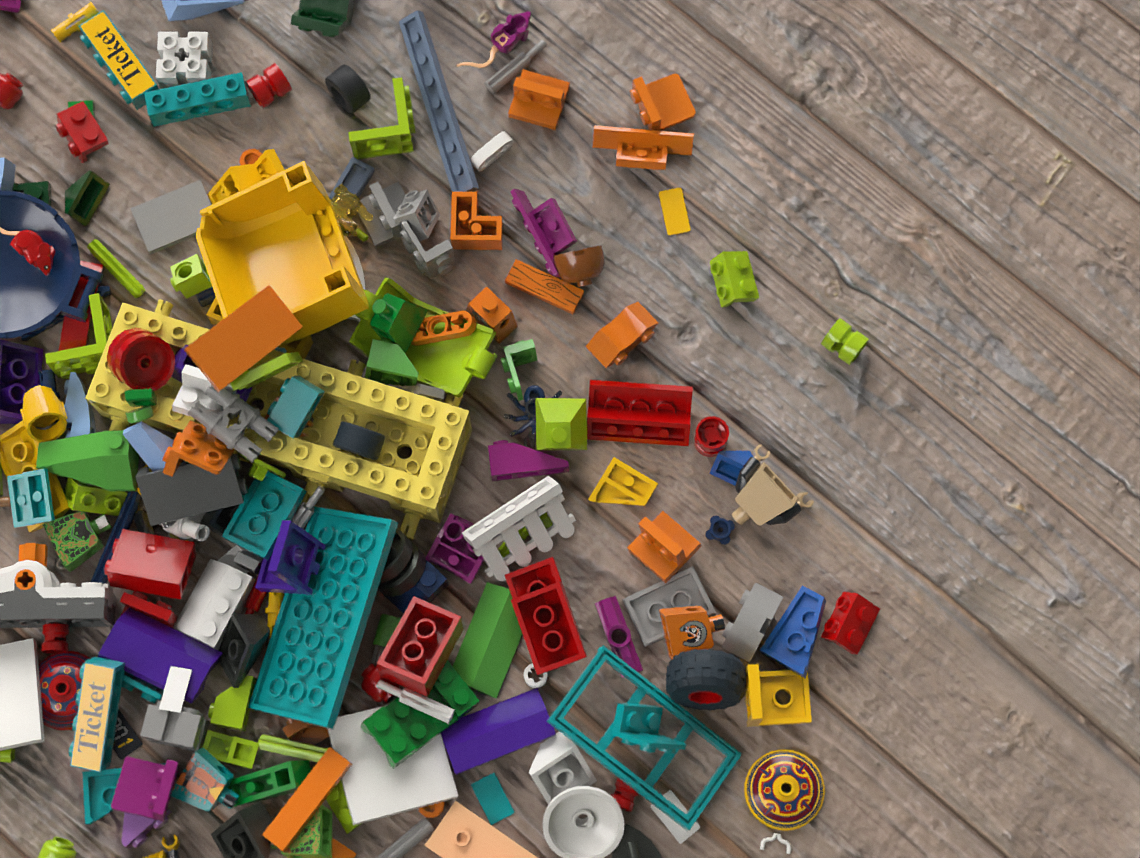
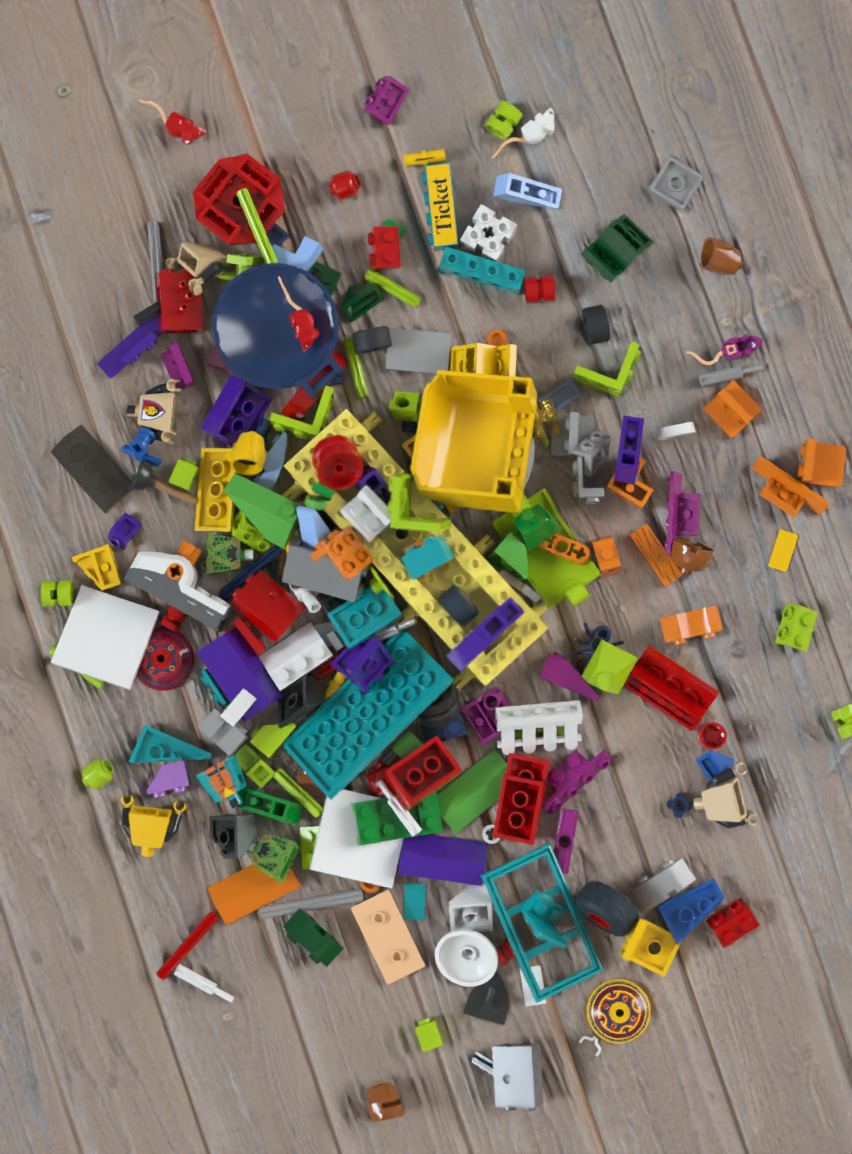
camera: 35 degrees right, 10 degrees up
(30, 498) = (208, 509): teal slope -> none
(96, 714) = (175, 692): brick -> none
(113, 168) = (393, 288): none -> lime axle
(117, 228) = (372, 339): none -> black tyre
(125, 738) = (183, 709): black sticker -> none
(145, 788) = (182, 763): magenta bracket -> none
(233, 436) = (367, 543): light grey pin -> none
(243, 338) = (416, 496): orange tile -> none
(307, 799) = (287, 834): orange tile -> none
(402, 451) = (485, 634): none -> dark purple slope
(438, 103) = (658, 365): sand blue plate -> none
(452, 188) = (629, 449): none -> dark purple slope
(516, 355) = (608, 596): bright green bracket -> none
(588, 562) = (572, 776): none -> magenta bracket
(623, 486) = (629, 735): yellow wing -> none
(663, 546) = (632, 794): orange bracket -> none
(680, 591) = (612, 838): light grey tile -> none
(689, 628) = (615, 865): orange torso -> none

